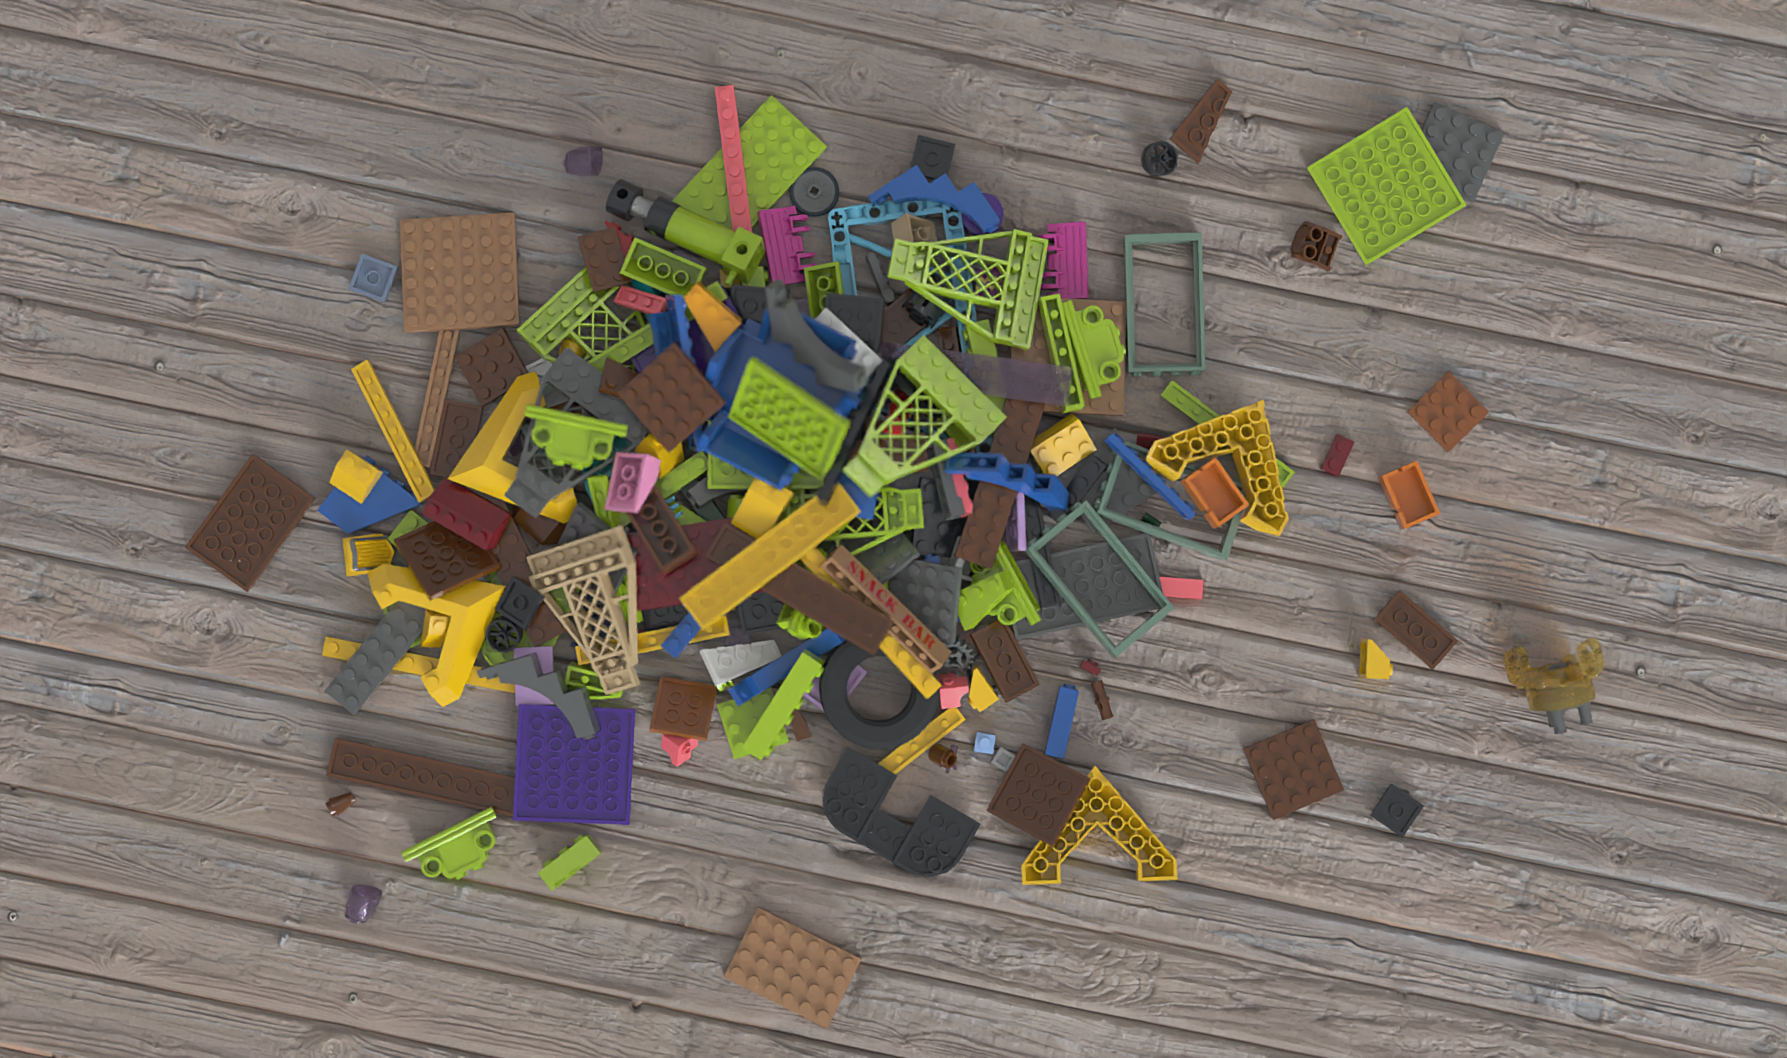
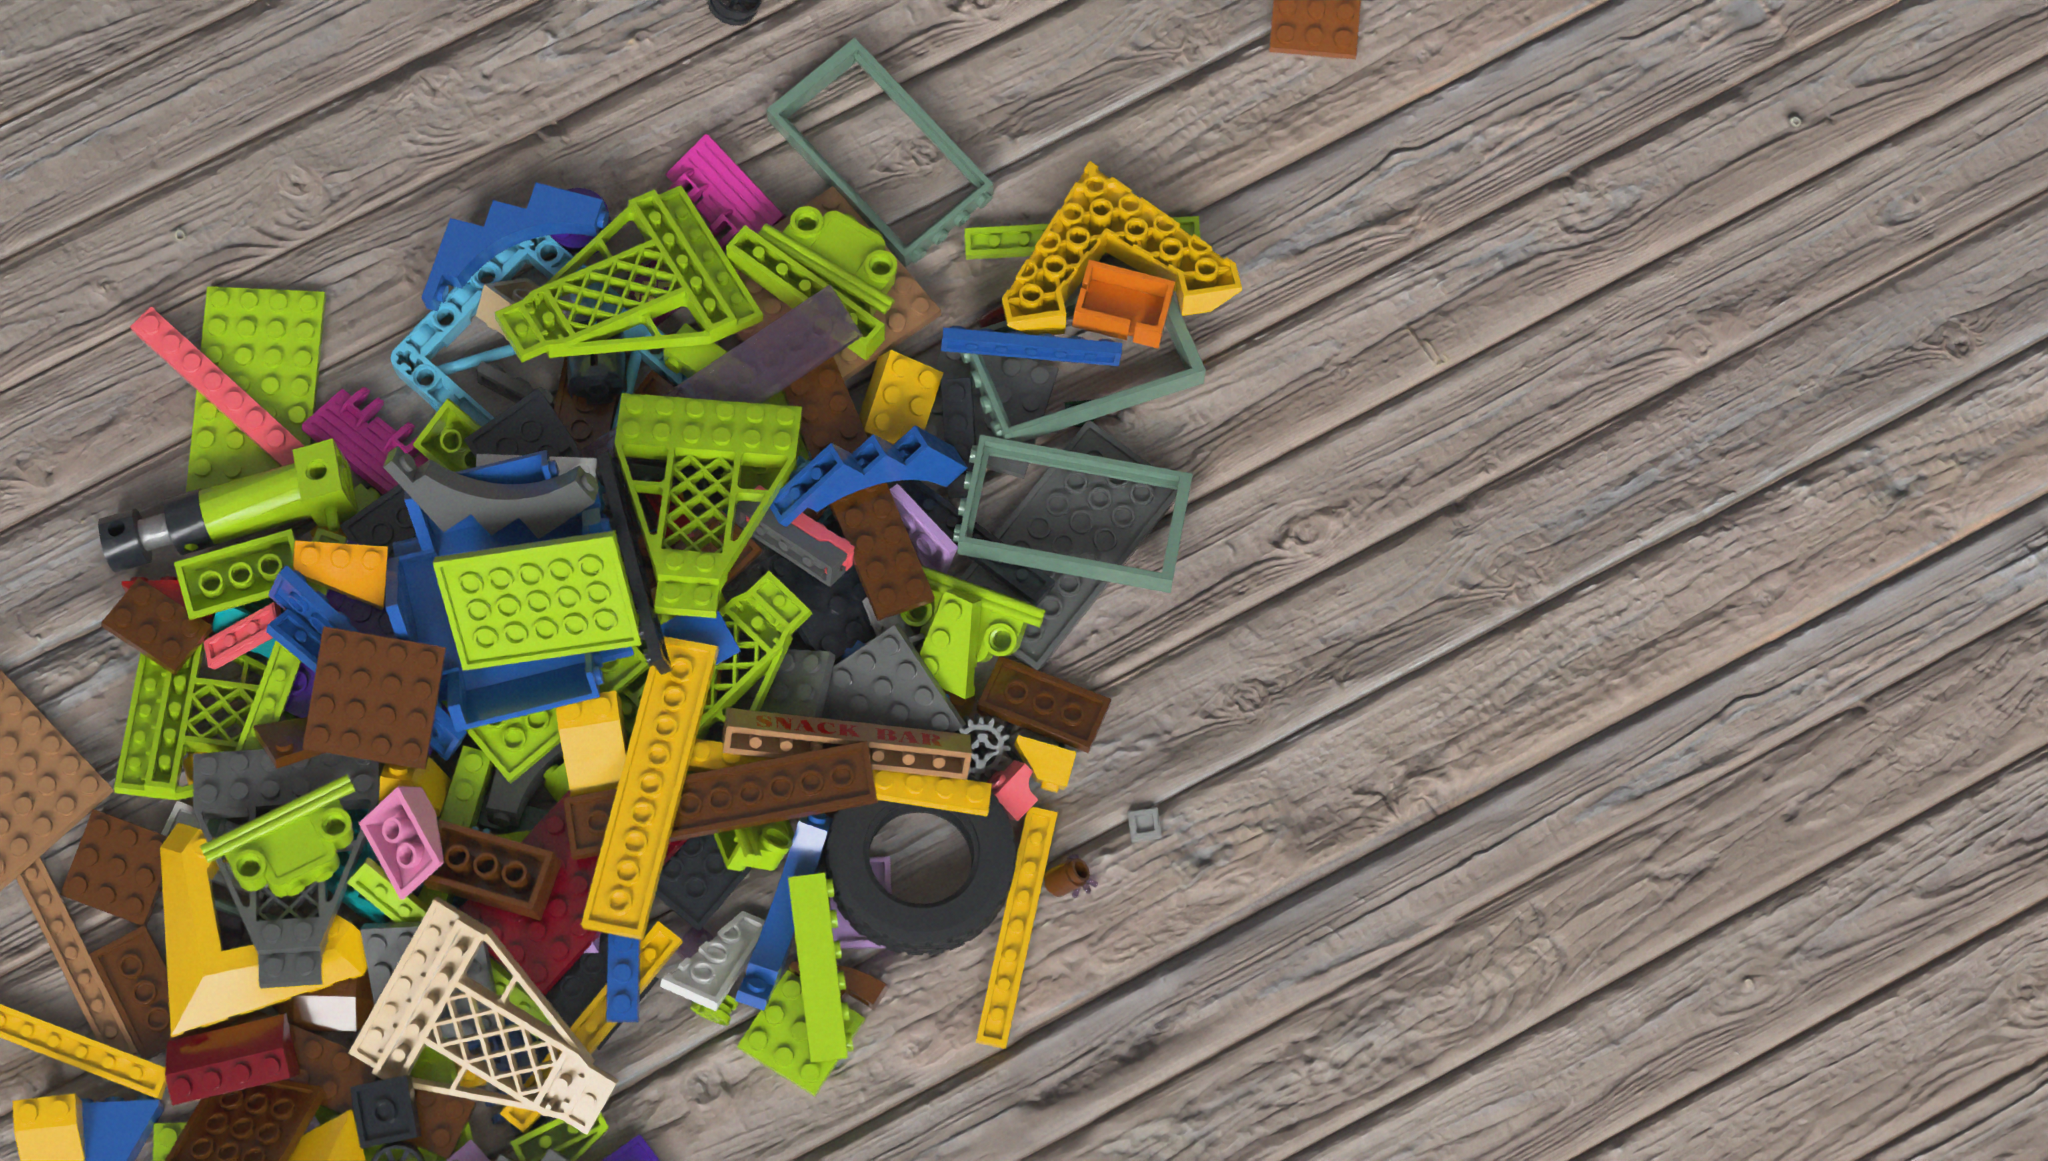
camera: 40 degrees left, 15 degrees down
(579, 161) = (37, 537): clear purple helmet -> none
(678, 748) = (730, 1128): coral brick -> none
(683, 708) = (699, 1080): dark orange plate -> none
(824, 200) = (349, 337): dark grey wheel -> none
(852, 807) = (1007, 1027): black plate -> none
(932, 156) = (461, 199): black plate -> none
(984, 743) = (1105, 824): light blue plate -> none
(1038, 795) = (1221, 824): reddish brown plate -> none
(1061, 721) = (1175, 720): blue brick -> none
(1090, 666) = (1154, 630): dark red plate -> none
(1102, 700) = (1201, 657): reddish brown pin -> none
(1107, 809) = (1312, 778): yellow wedge -> none
(1182, 587) = (1185, 451): coral tile -> none
(1293, 769) = (1498, 553): reddish brown plate -> none
(1337, 455) = (1232, 161): dark red plate -> none
(1373, 661) = (1479, 349): yellow slope -> none
(1396, 810) = (1660, 499): black plate -> none
(1409, 495) = (1352, 135): orange piece -> none
(1415, 629) = (1497, 279): reddish brown plate -> none
(1558, 684) = (1714, 200): clear yellow piece -> none

